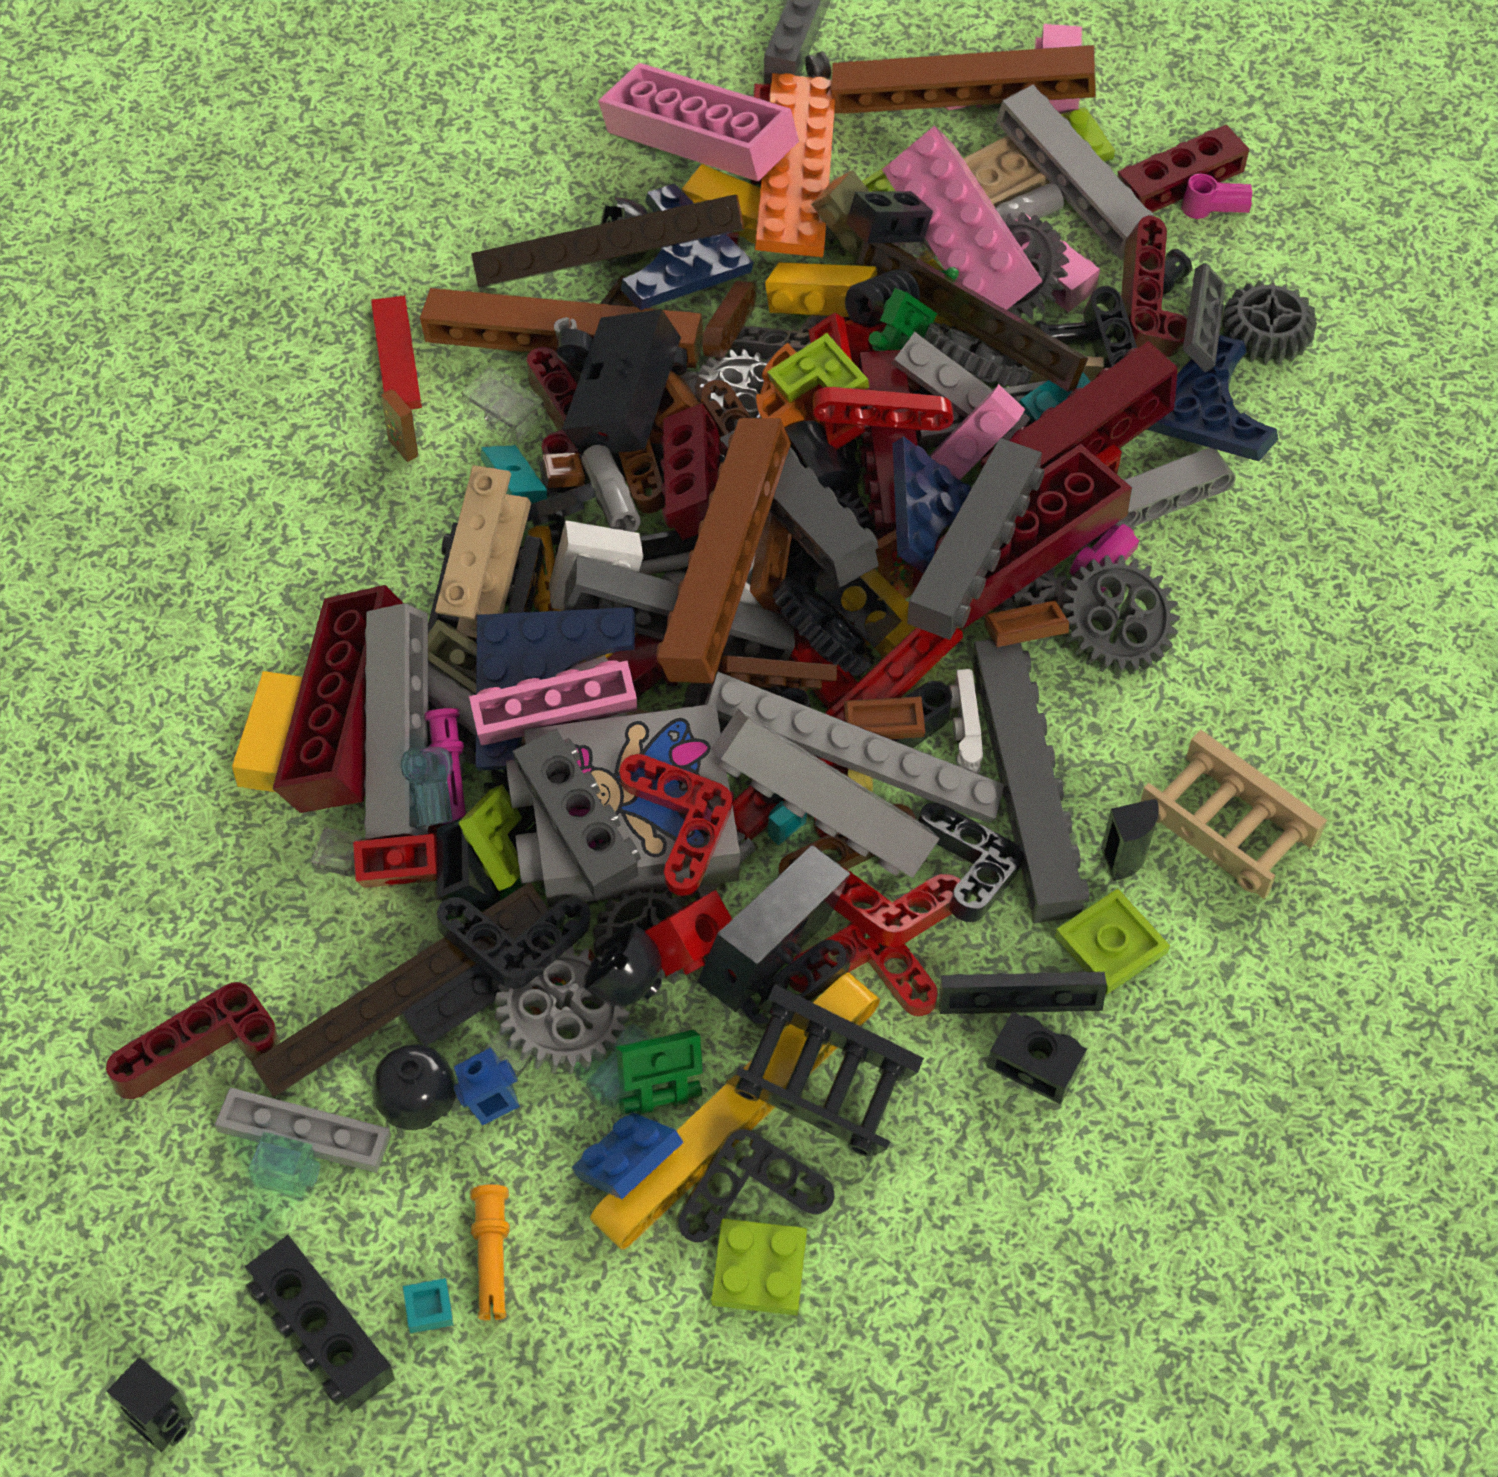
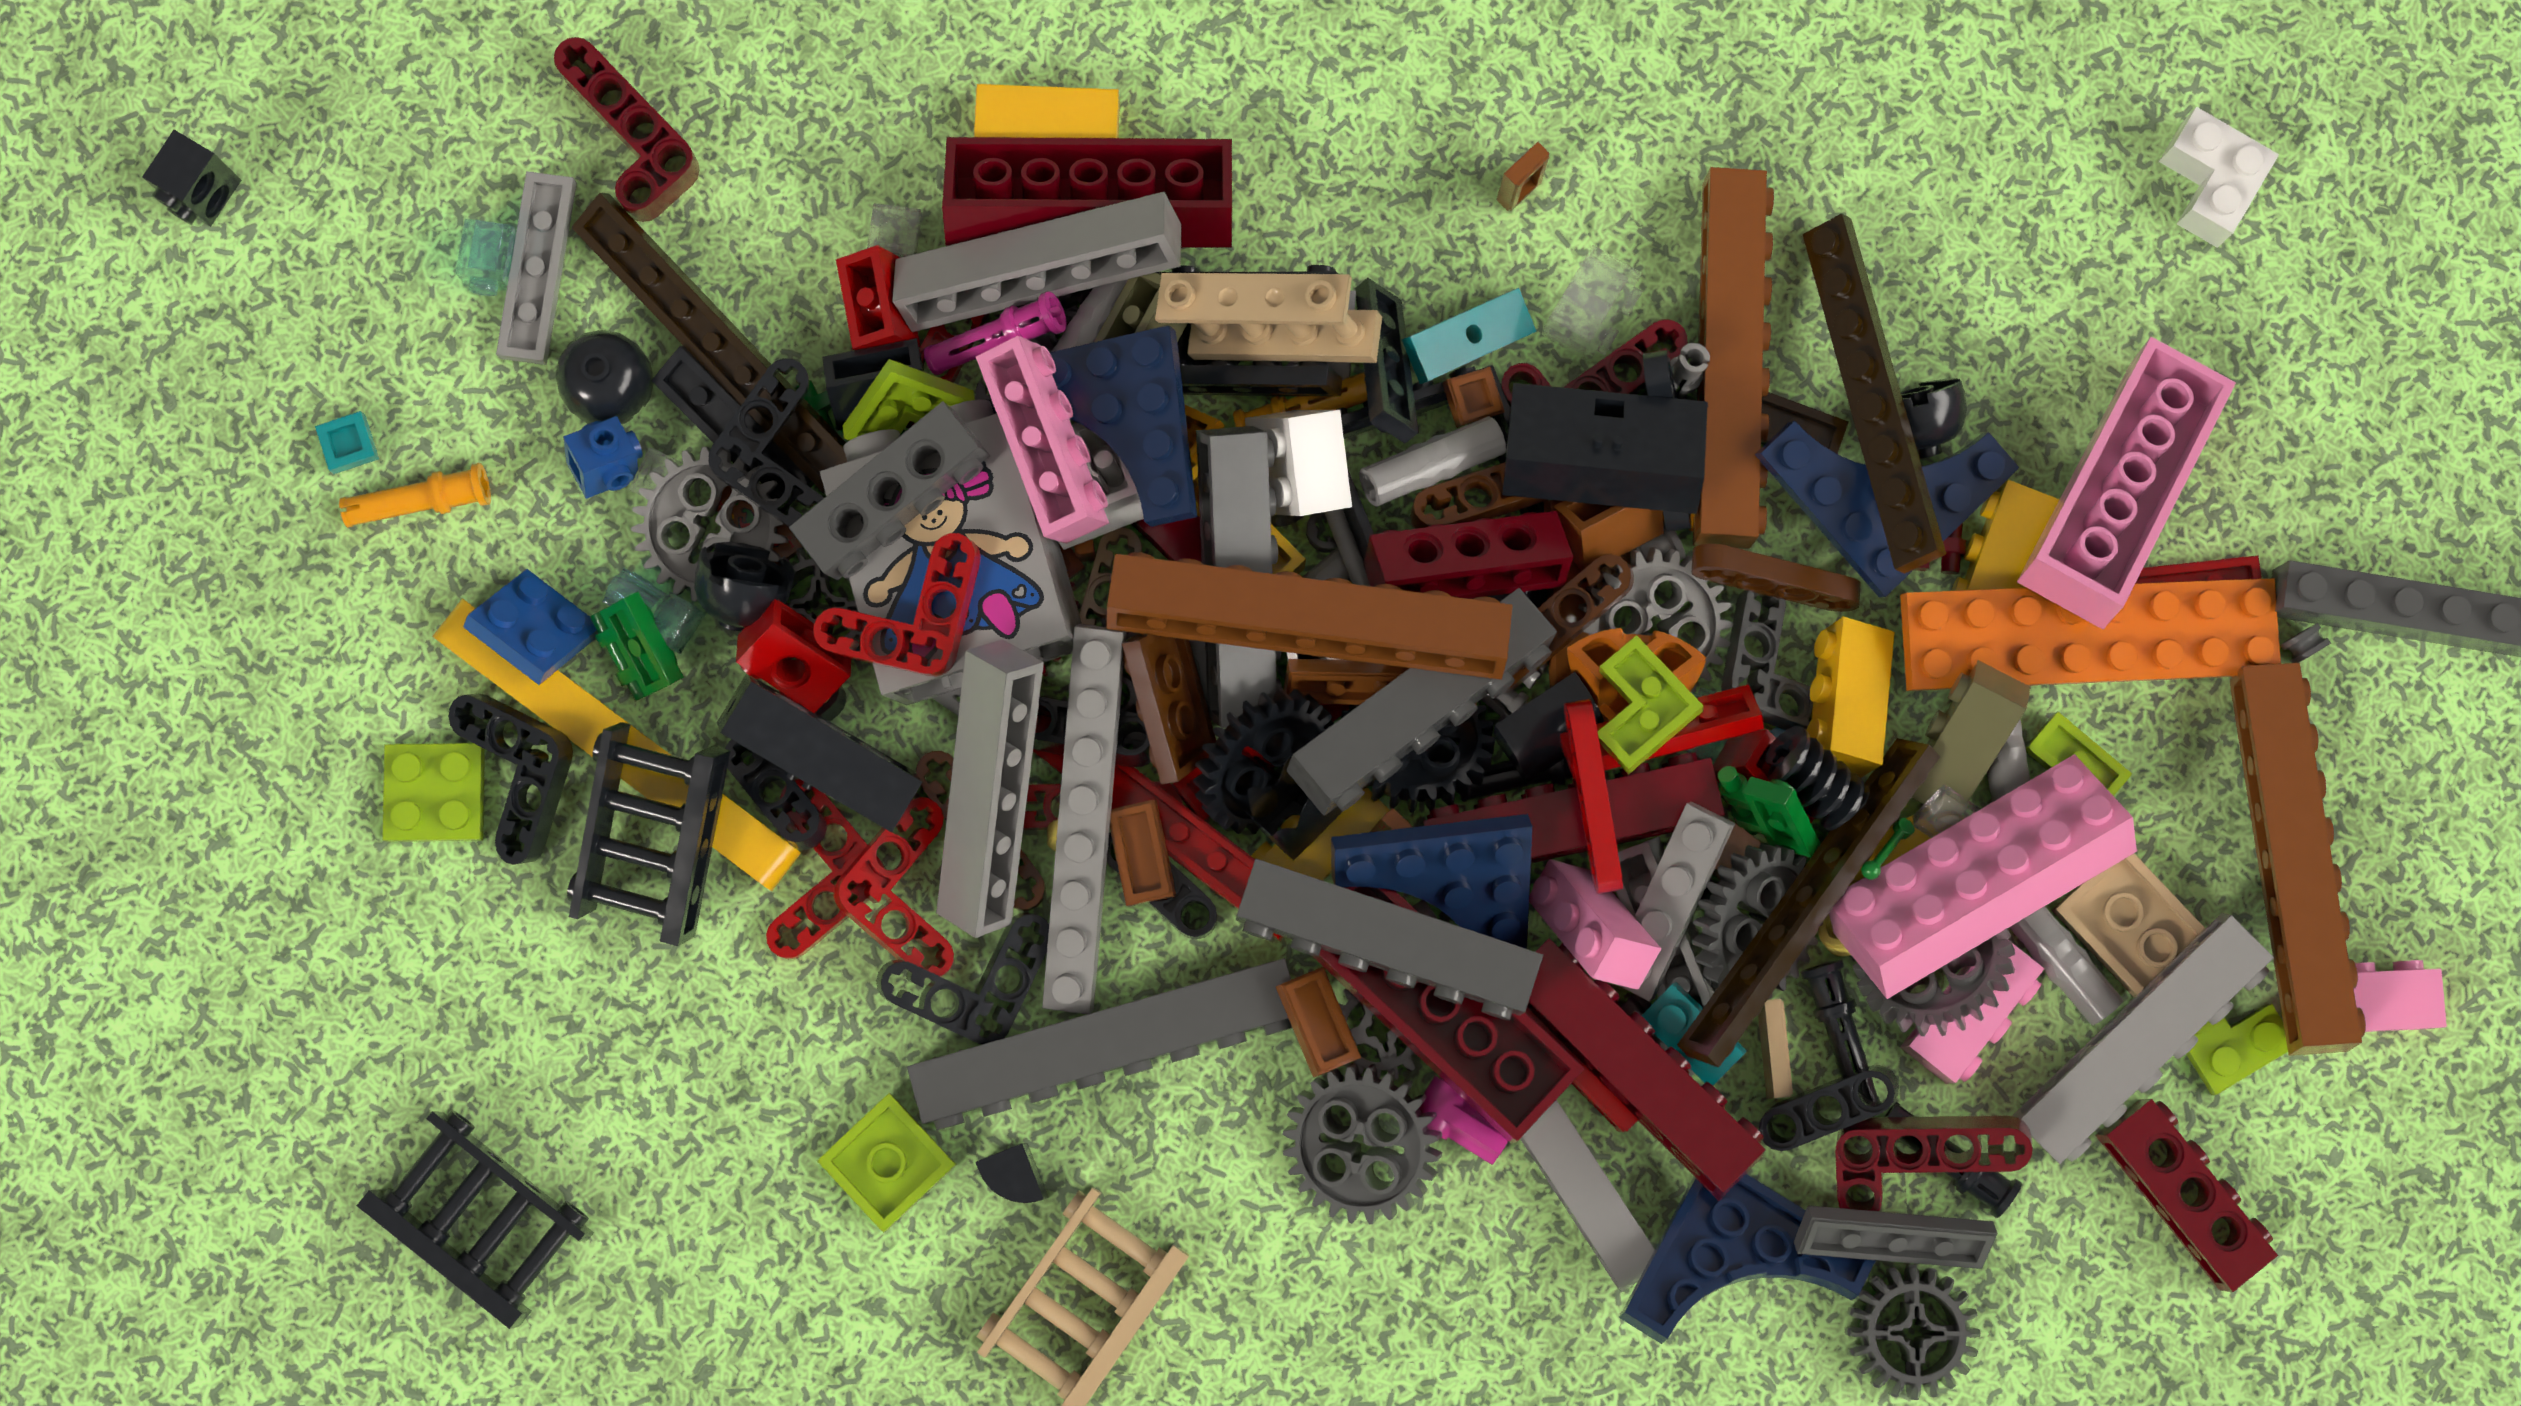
camera: 80 degrees right, 25 degrees up
(288, 1267) = (309, 358): black brick -> none
(396, 349) = (1671, 149): red tile -> none
(429, 784) = (964, 310): clear light blue piece -> none
(487, 60) = (2224, 166): none -> white brick
(889, 217) = (1950, 776): black brick -> none
(967, 725) = (1170, 960): white hinge -> none
(1022, 992) = (799, 1036): black plate -> none
(1048, 1076) = (693, 1099): black brick -> none
(1156, 1301) = (430, 1237): none -> black fence
(1206, 195) = (2144, 1255): dark pink piece -> none

